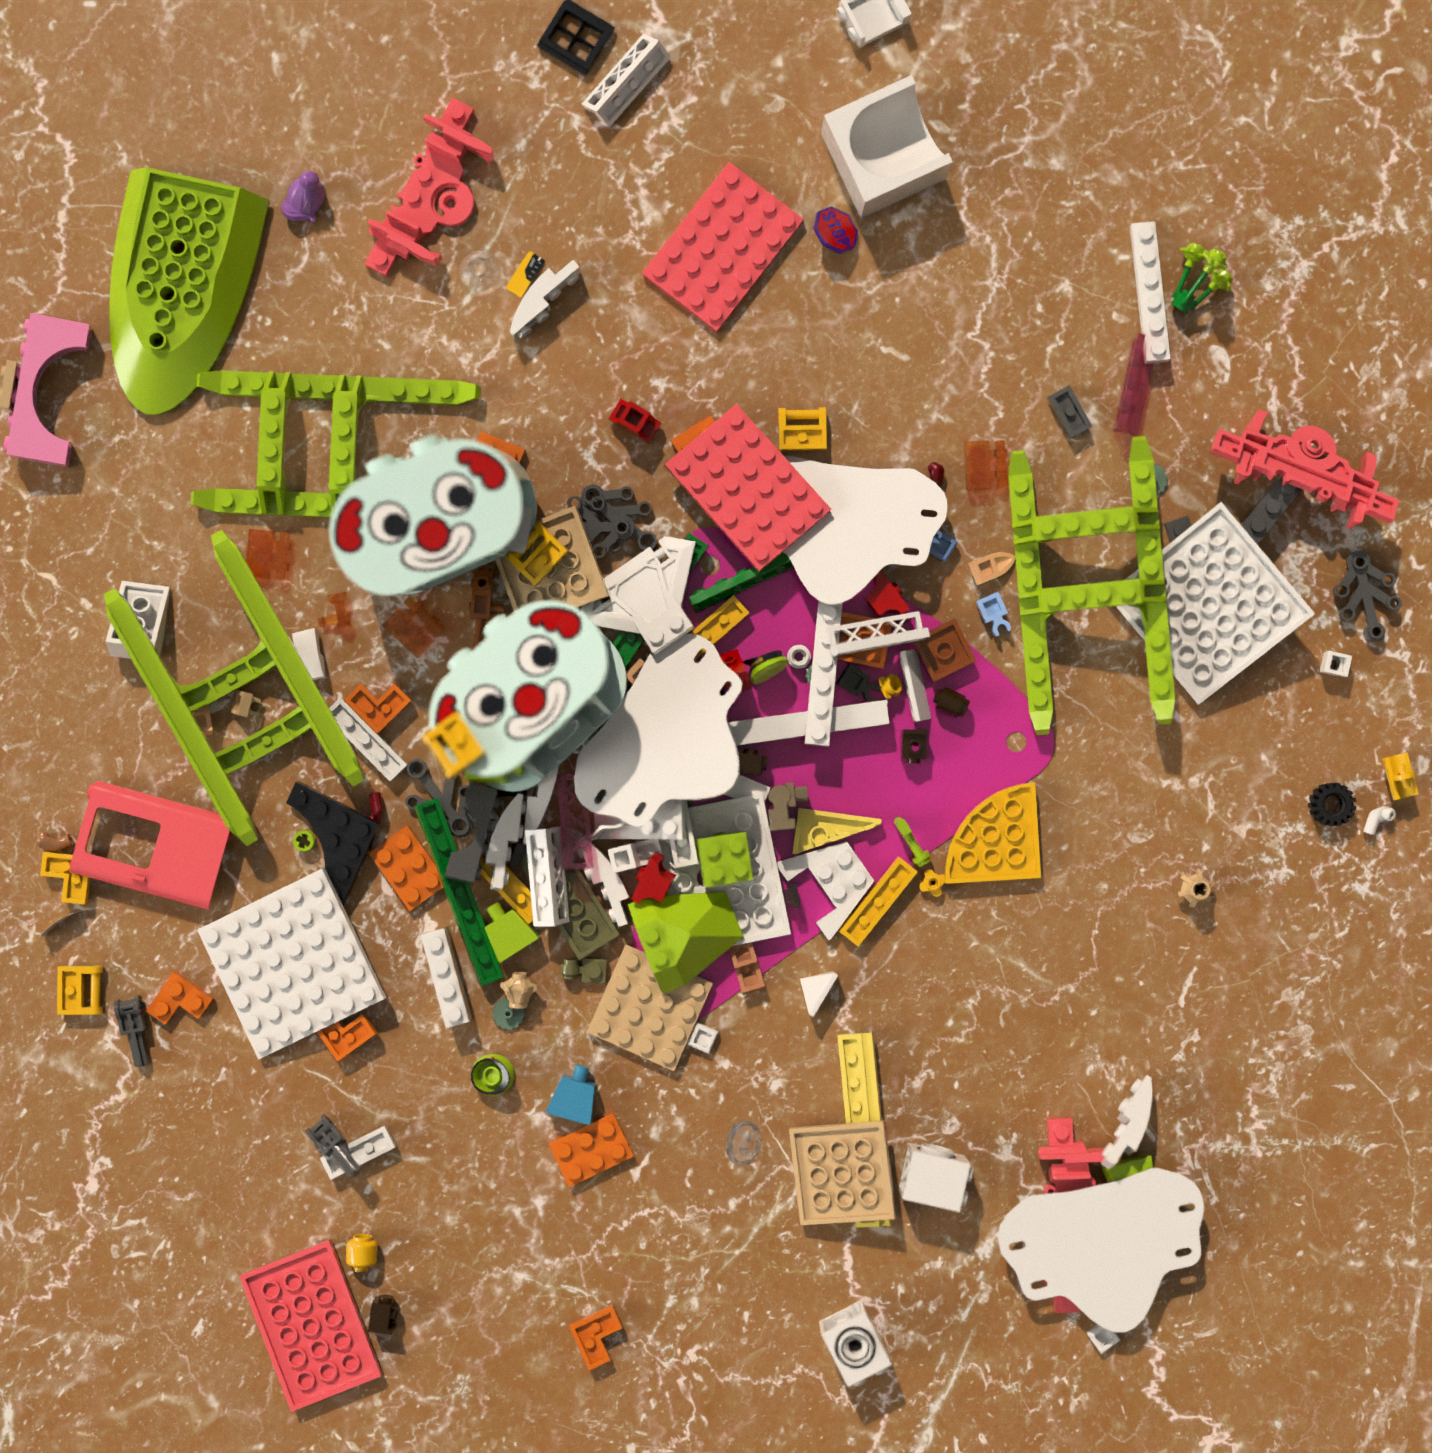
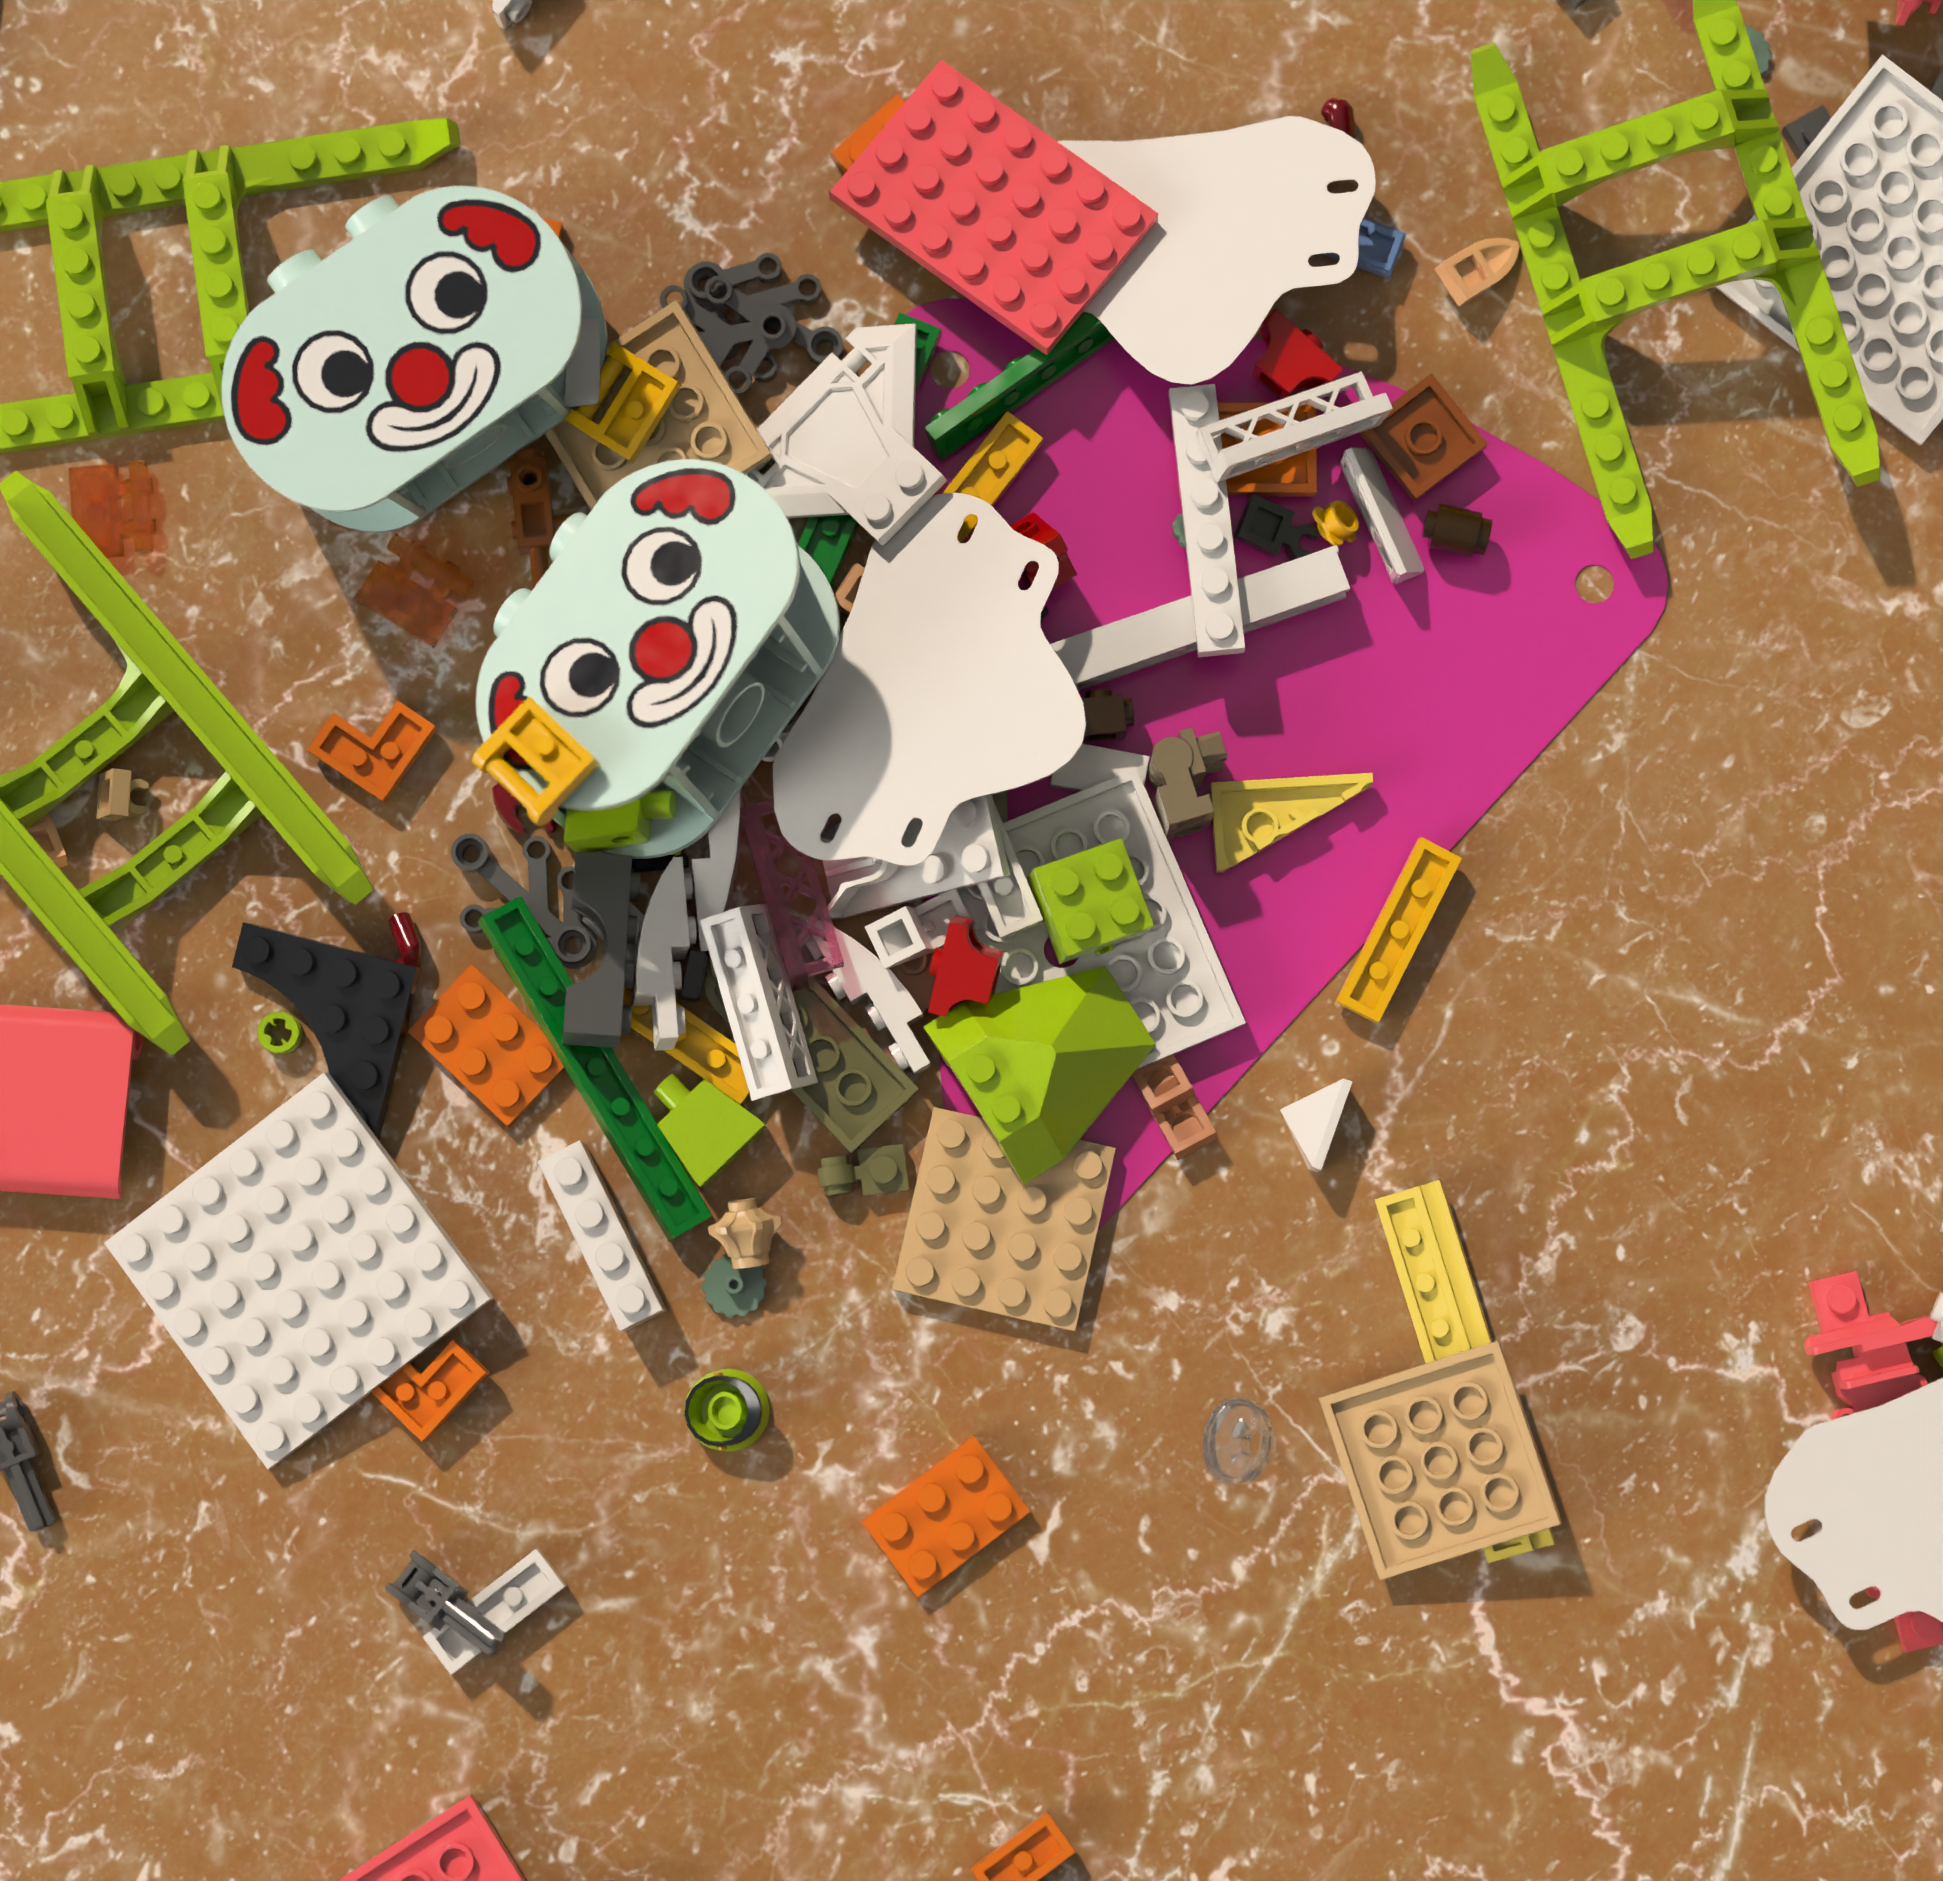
camera: 15 degrees left, 5 degrees down
(179, 993) = (91, 1372): orange plate -> none
(309, 650) = (222, 663): white slope -> none
(341, 617) = (272, 601): clear orange piece -> none
(361, 1252) = (538, 1806): yellow head -> none
(367, 741) = (369, 819): white plate -> none
(574, 1097) = (892, 1418): dark azure torso -> none
(635, 420) = (758, 128): red brick -> none
(702, 1037) = (1116, 1257): white tile -> none
(766, 666) = (1096, 528): lime piece -> none
(791, 895) = (1232, 950): clear smoke plate -> none
(802, 436) = (1074, 99): yellow plate -> none
(806, 656) = (1156, 490): white plate -> none
(839, 875) = (1311, 894): white wing -> none
(858, 1358) = (1557, 1808): white brick -> none
(909, 736) = (1393, 639): dark brown brick -> none
(921, 857) = (1419, 783): lime hinge -> none
(926, 884) = (1483, 882): yellow plate -> none
(935, 1176) = (1620, 1429): white brick -> none
(978, 465) = (1414, 89): clear orange plate -> none
(992, 610) = (1499, 346): light blue plate -> none
(997, 839) = (1599, 769): yellow plate -> none

